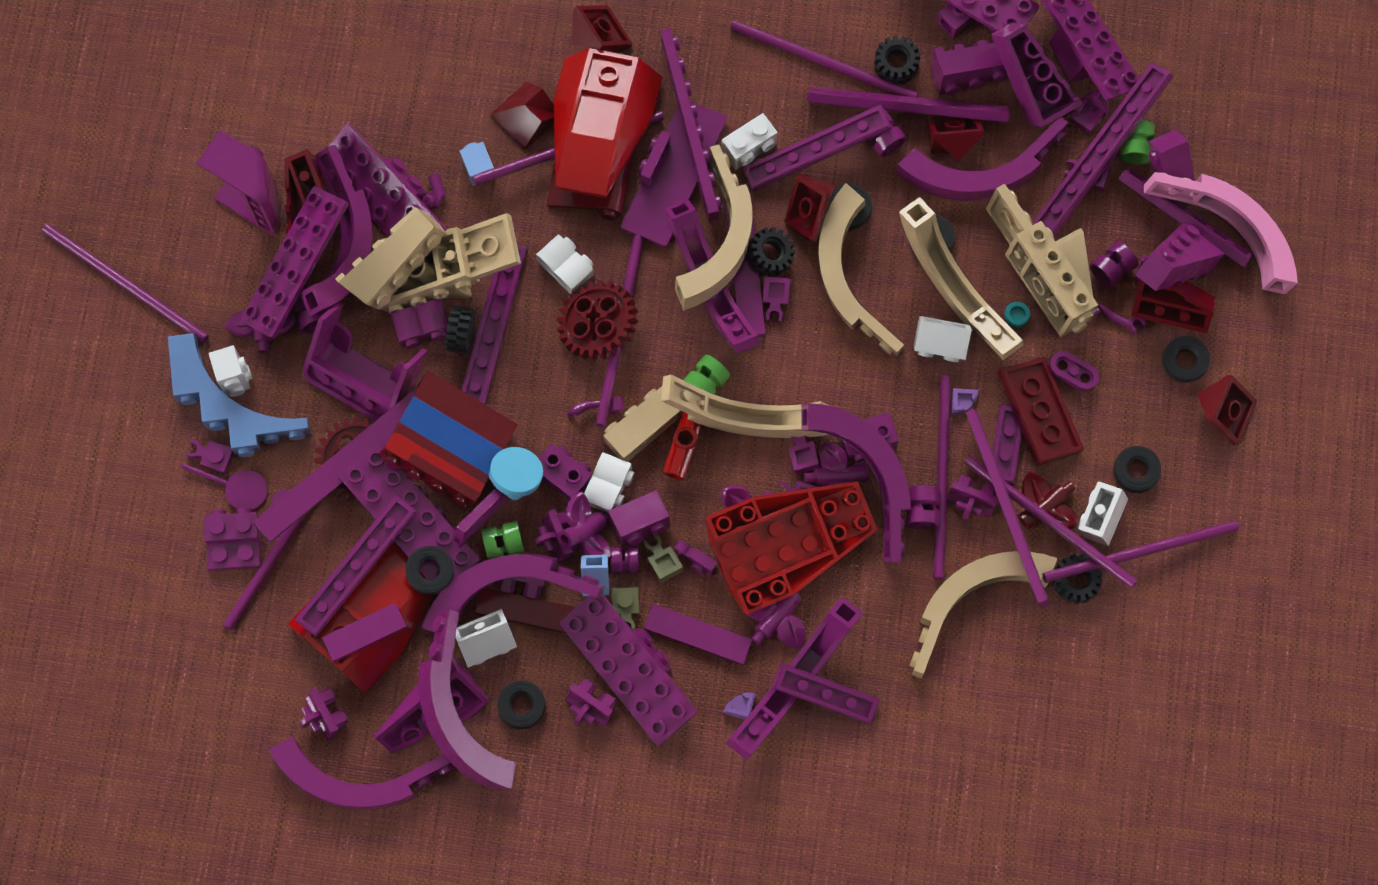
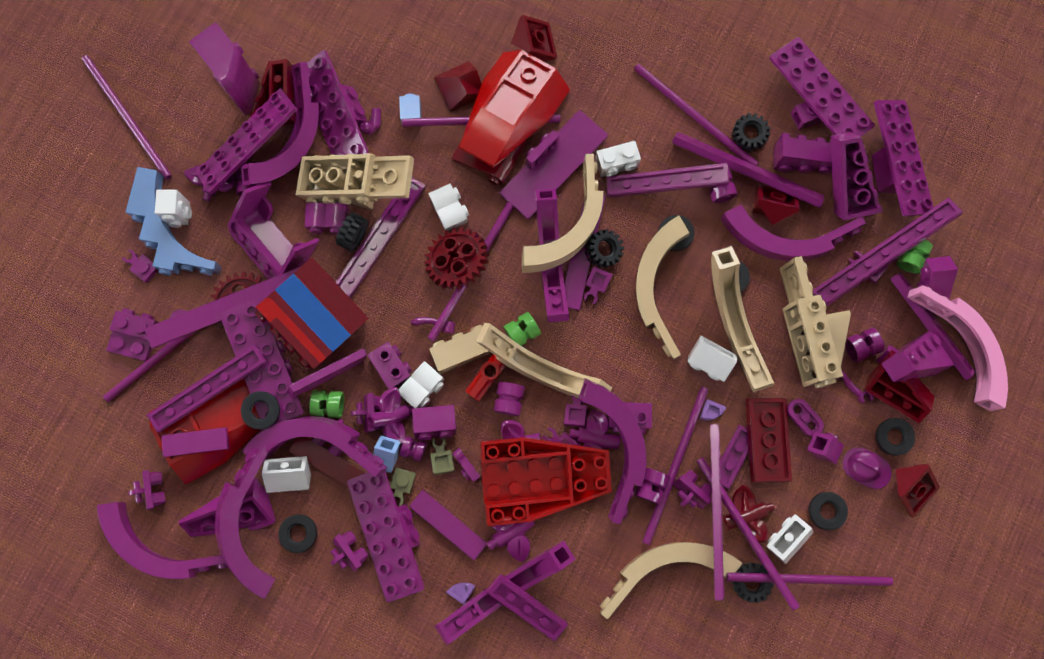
camera: 20 degrees right, 5 degrees up
(242, 489) = (155, 299): magenta piece -> none
(393, 259) = (315, 162): tan wedge -> none
(516, 472) = (352, 356): medium azure tile -> none
(693, 134) = (578, 139): magenta plate -> none
(719, 466) = (509, 398): none -> magenta wheel
(809, 205) = (645, 223): dark red slope -> none
(1017, 315) = (775, 358): teal tile -> none
(1090, 112) = (884, 221): magenta tile -> none
(1108, 396) = (825, 447): none -> magenta brick
(1166, 406) = (867, 468): none -> magenta piece

